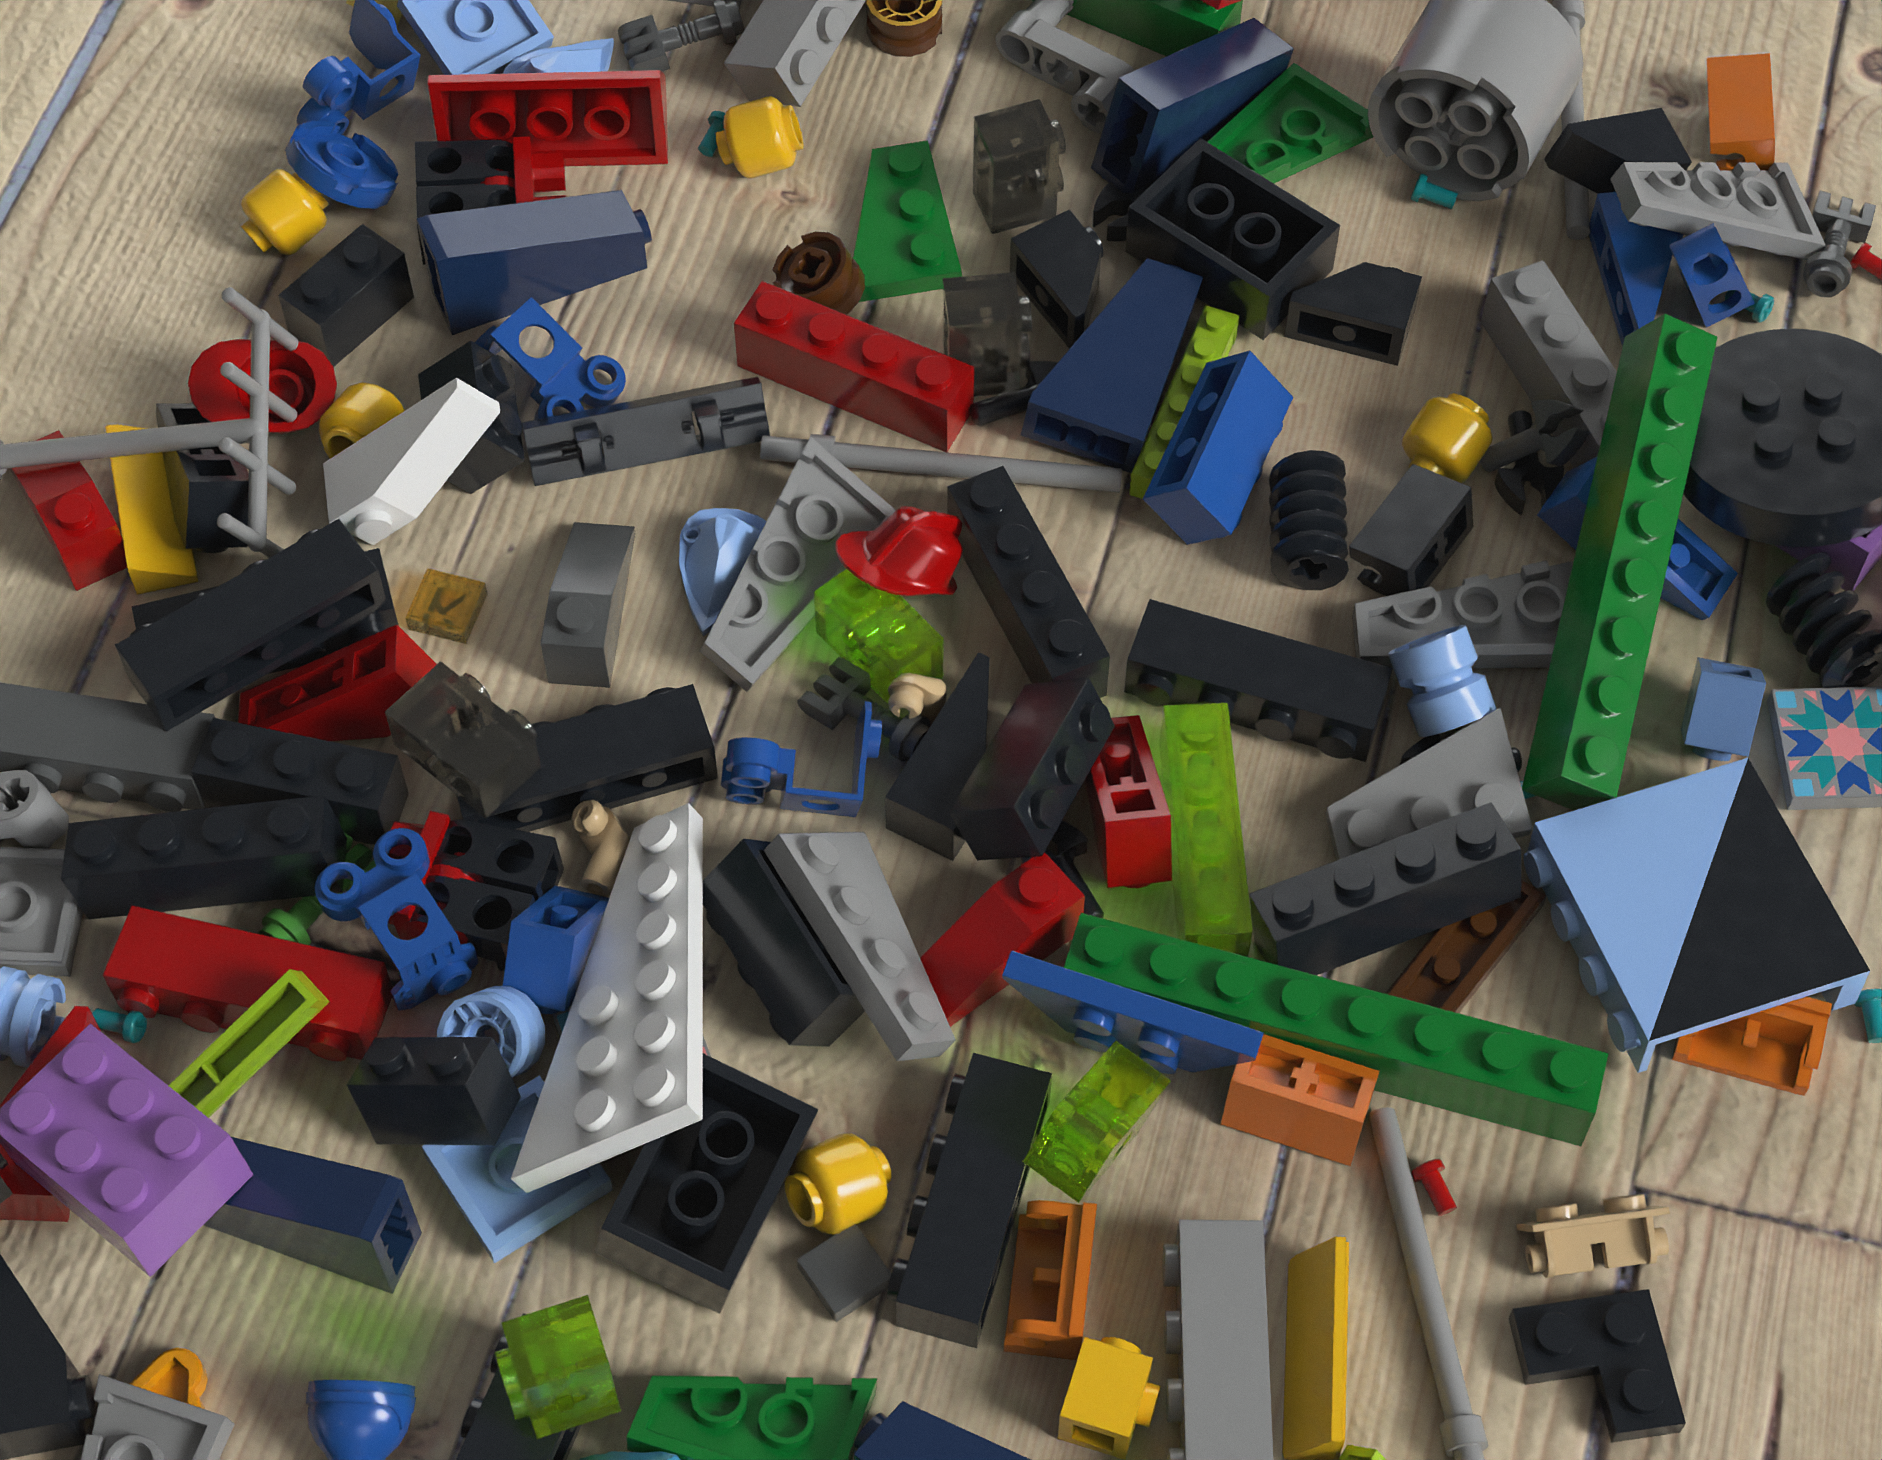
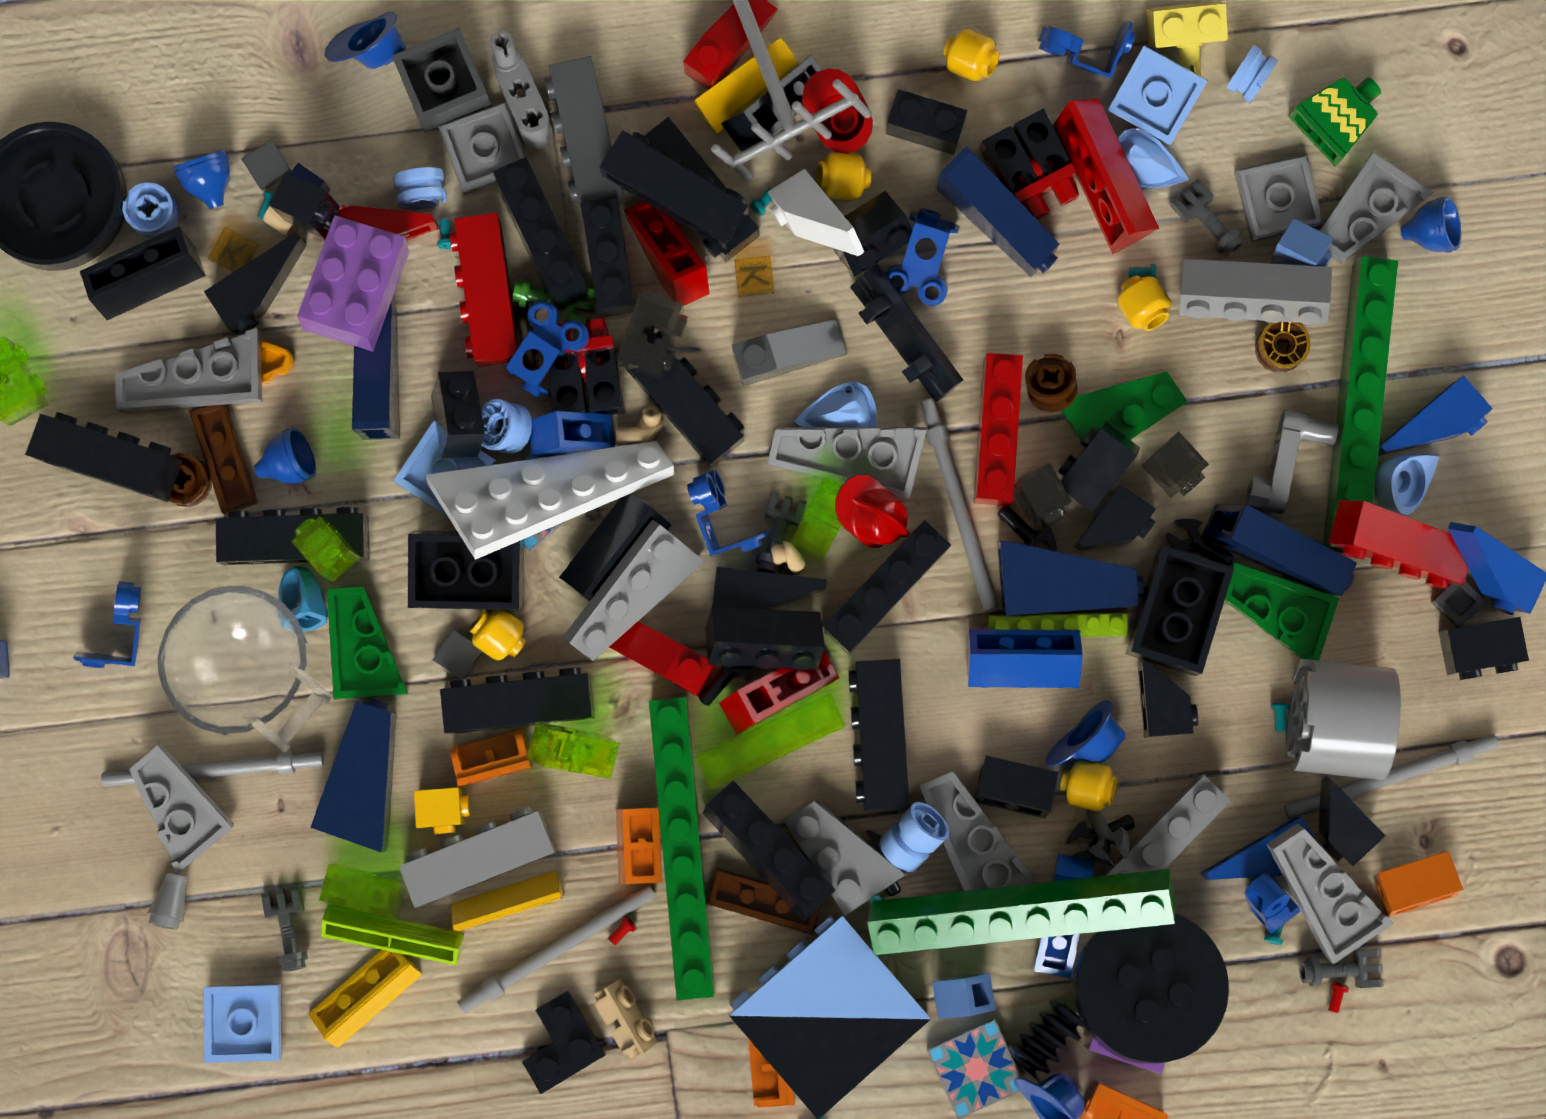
camera: 70 degrees right, 25 degrees up
(250, 1042) = (439, 310): lime piece -> none
(342, 167) = (1014, 72): blue tile -> none
(967, 239) = (1098, 465): none -> black brick
(1153, 1028) = (635, 736): blue wing -> none
(1308, 520) = (998, 725): black piece -> none
(1371, 411) = (1091, 740): none -> blue piece

